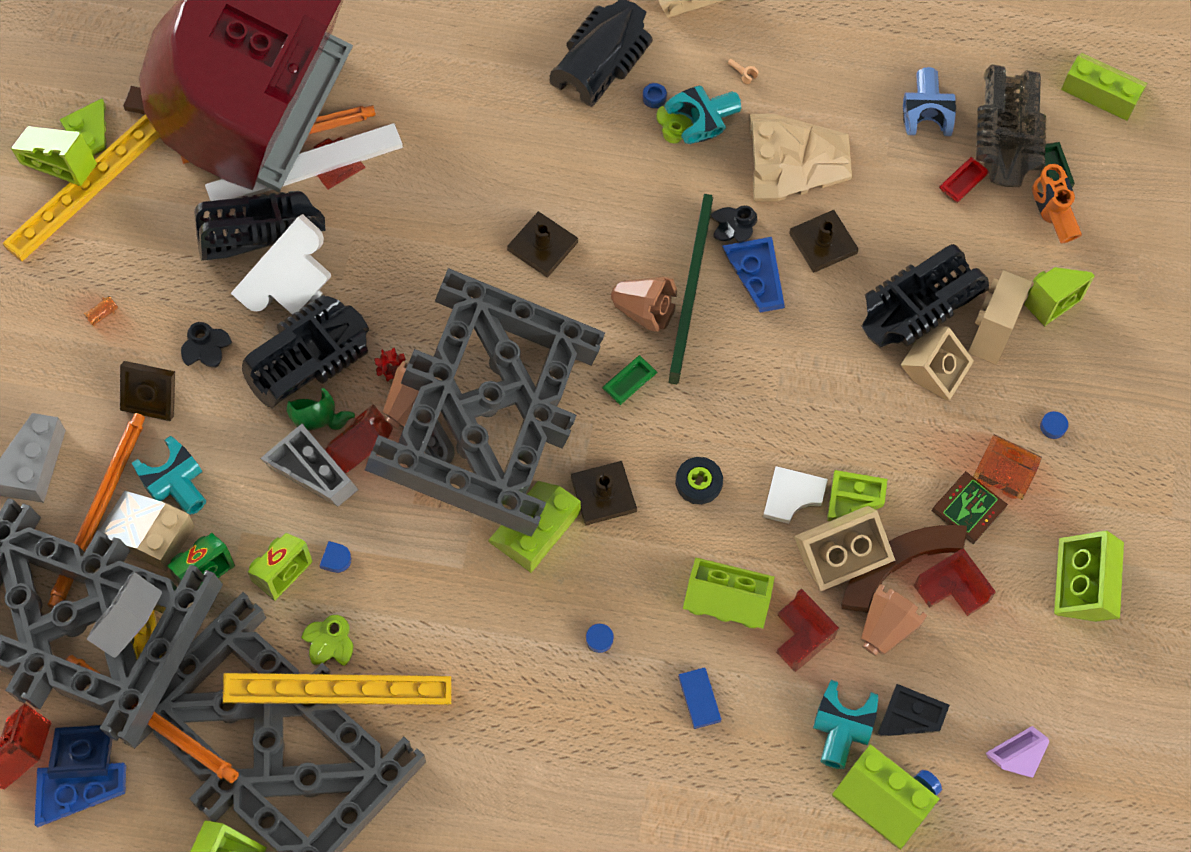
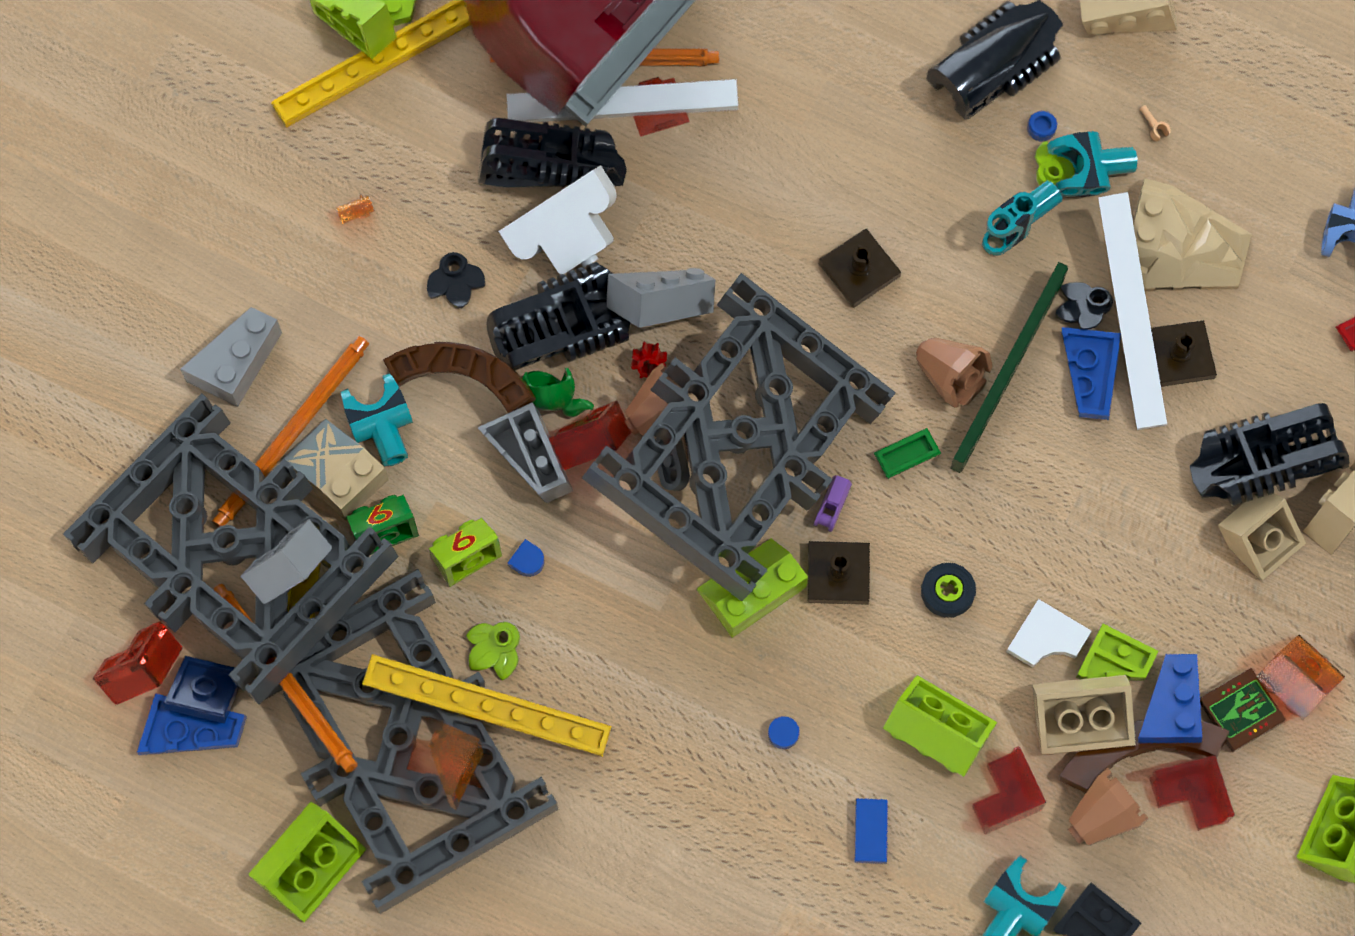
camera: 20 degrees right, 5 degrees up
(147, 390) = (379, 315): dark brown tile -> none
(232, 407) = (461, 360): none -> reddish brown tile
(325, 743) = (456, 759): none -> clear orange slope
(384, 308) = (660, 295): none -> light grey wedge
(581, 435) = (833, 500): none -> medium lavender bar
(659, 167) = (1018, 215): none -> teal connector
(776, 216) = (1132, 311): none -> white tile
(915, 517) = (1175, 703): none -> blue wing

